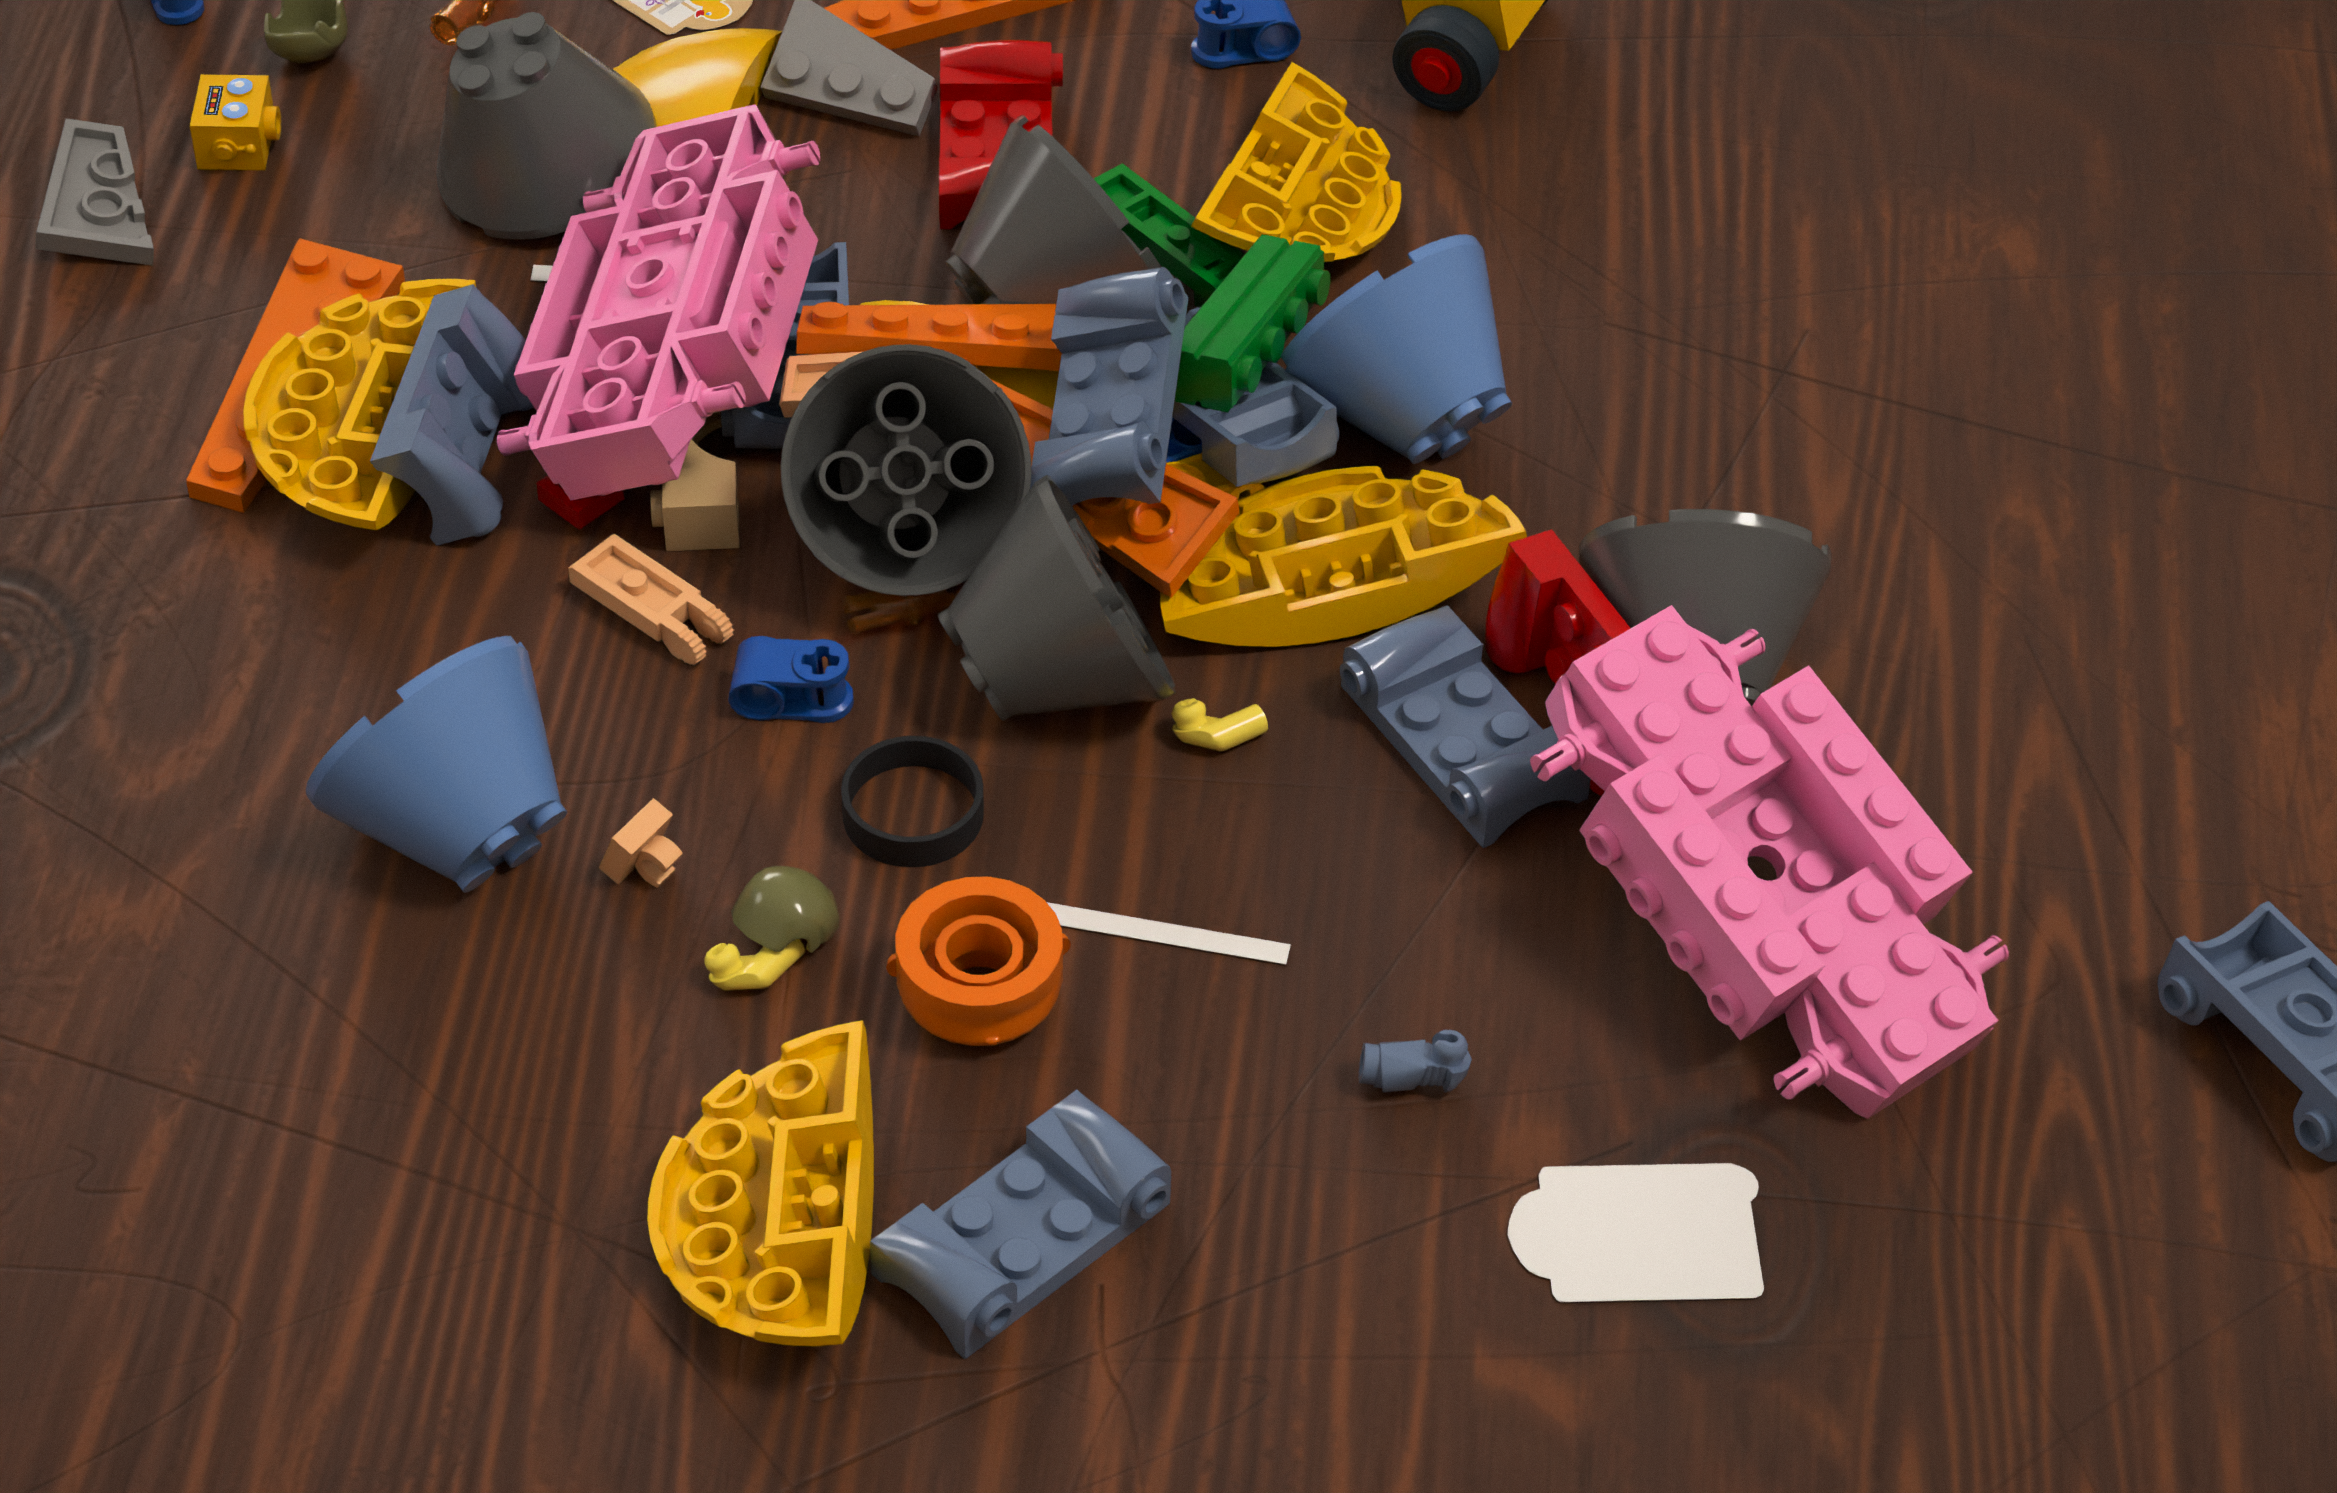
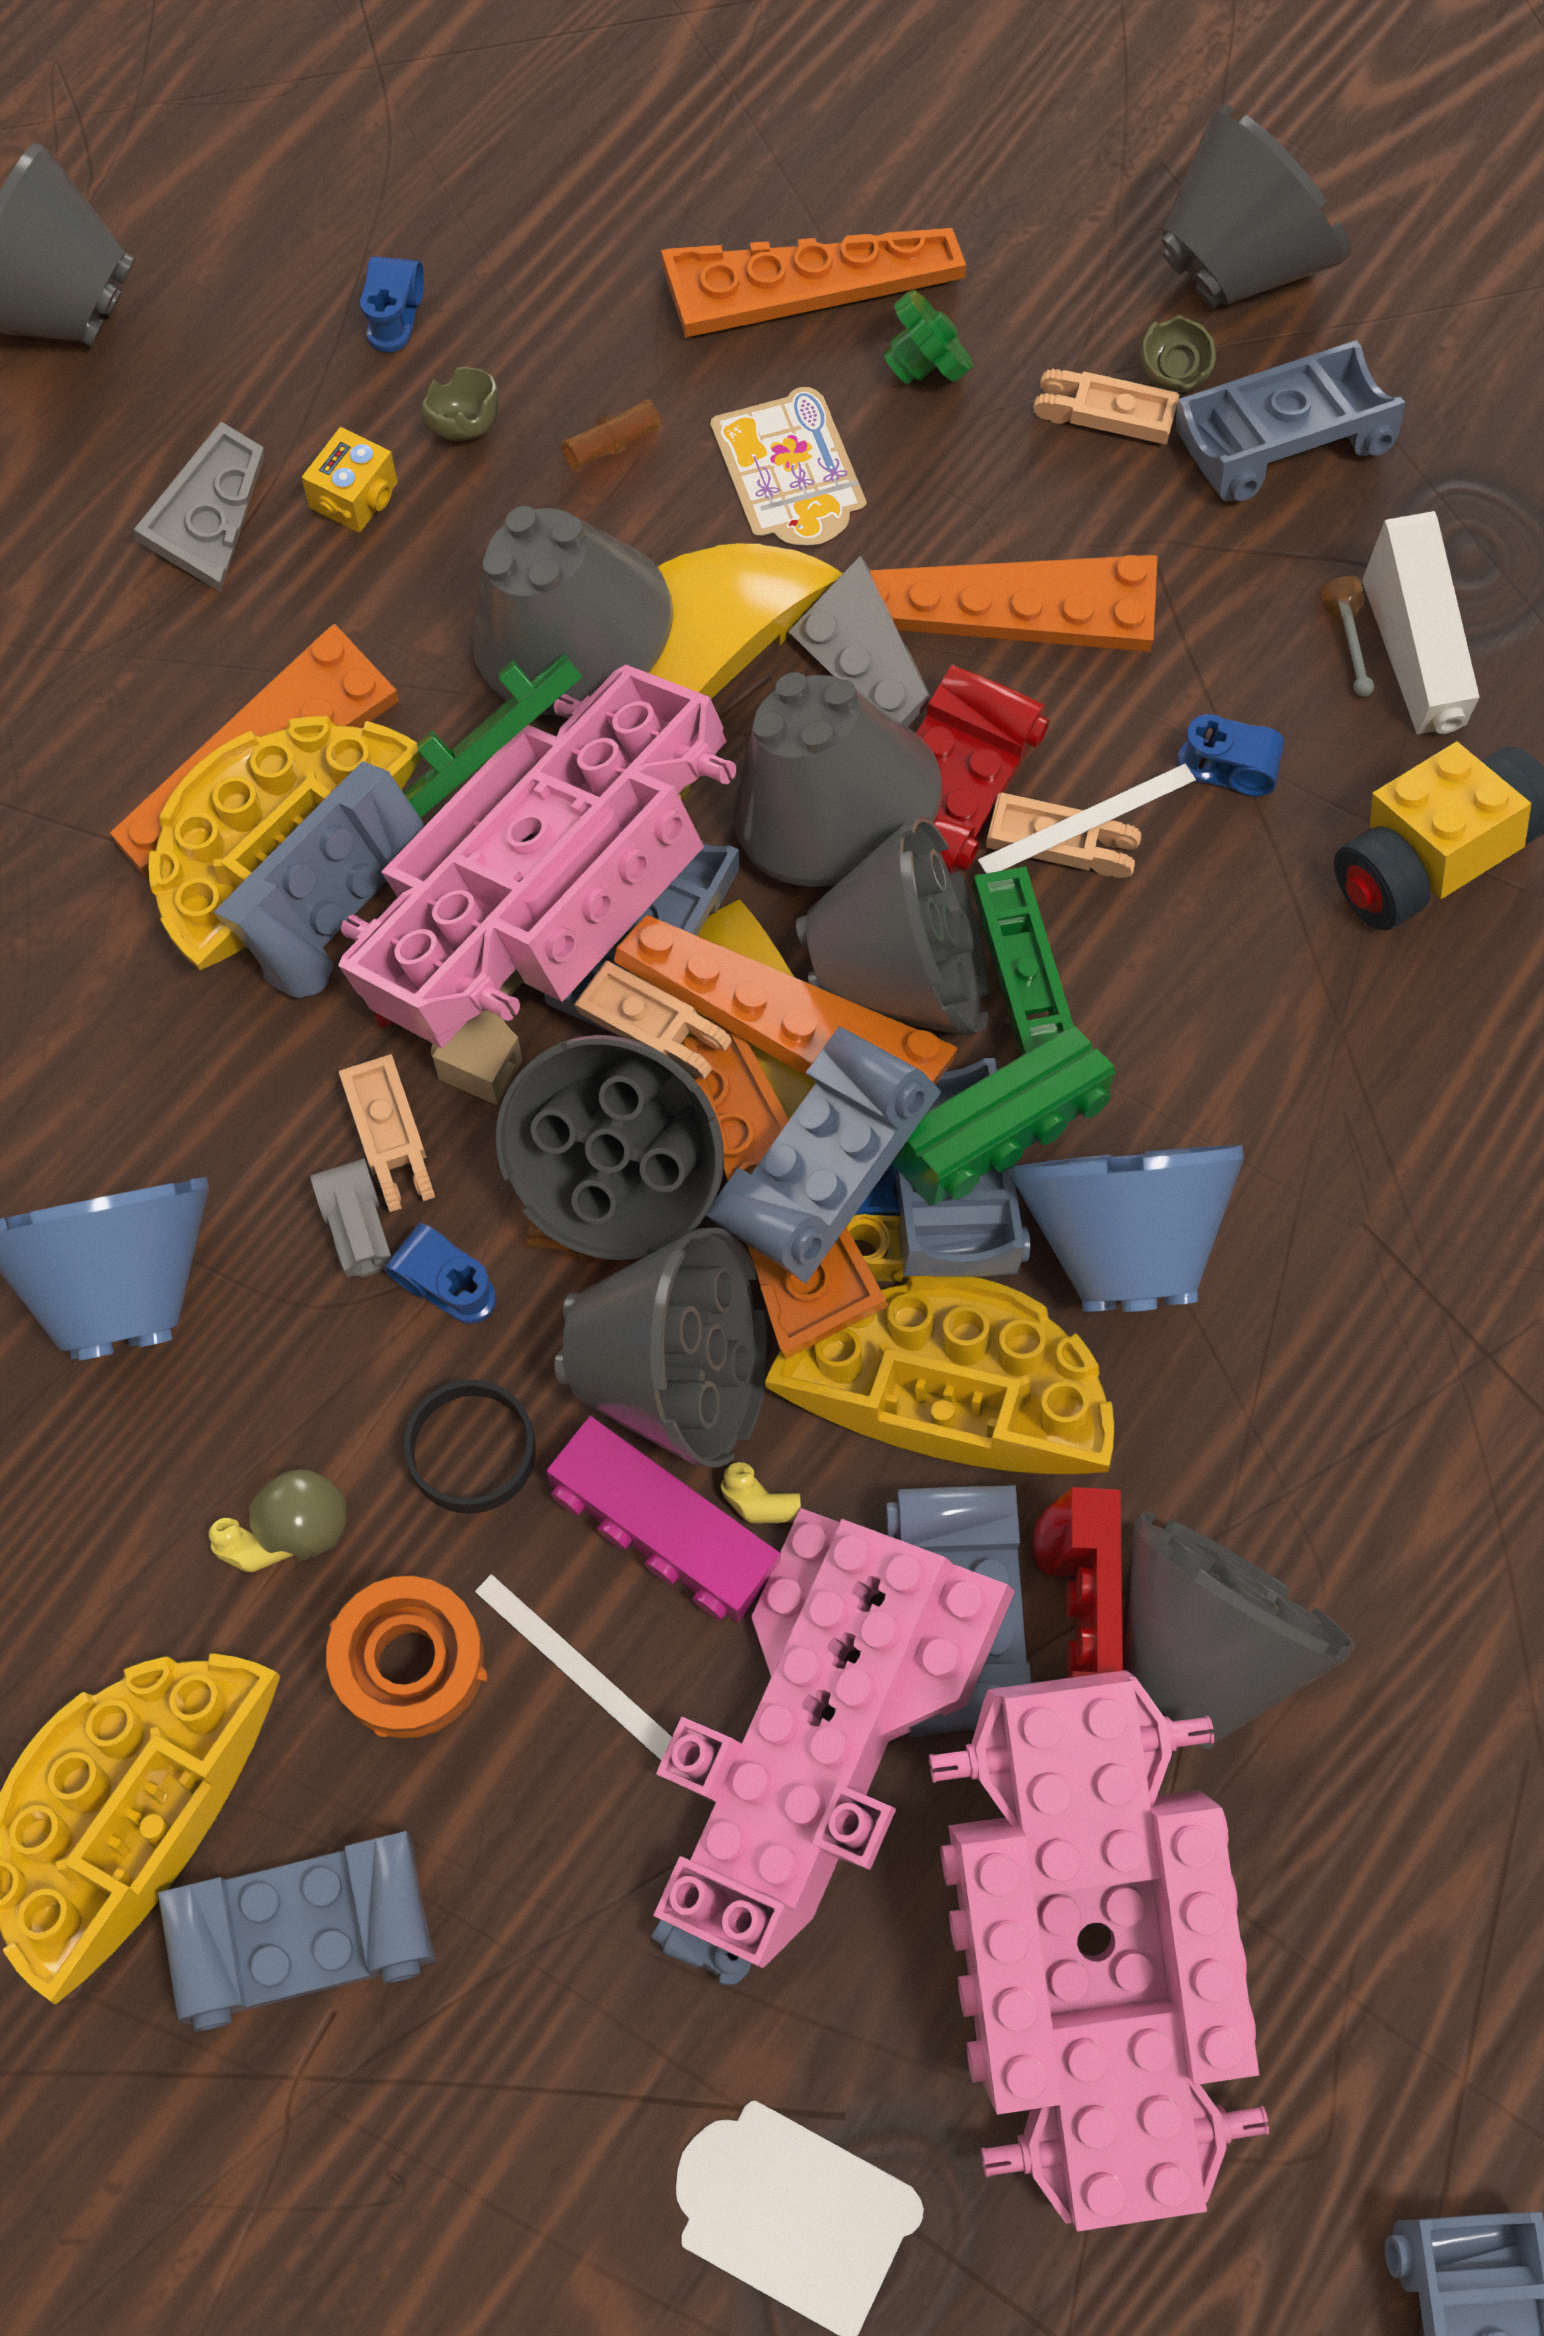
camera: 30 degrees right, 20 degrees up
(563, 194) = (527, 703): none -> green hinge
(642, 847) = (230, 1385): light nougat tile -> none
(656, 663) = (350, 1206): none -> light grey piece
(894, 153) = (828, 781): none -> dark grey cone
(1139, 140) = (1021, 817): none -> light nougat hinge
(1141, 771) = (663, 1520): none -> dark pink brick
(1154, 112) = (1087, 819): none -> white sticker
(1305, 176) = (1172, 963): yellow brick -> none
(1394, 777) = (798, 1783): none -> bright pink piece

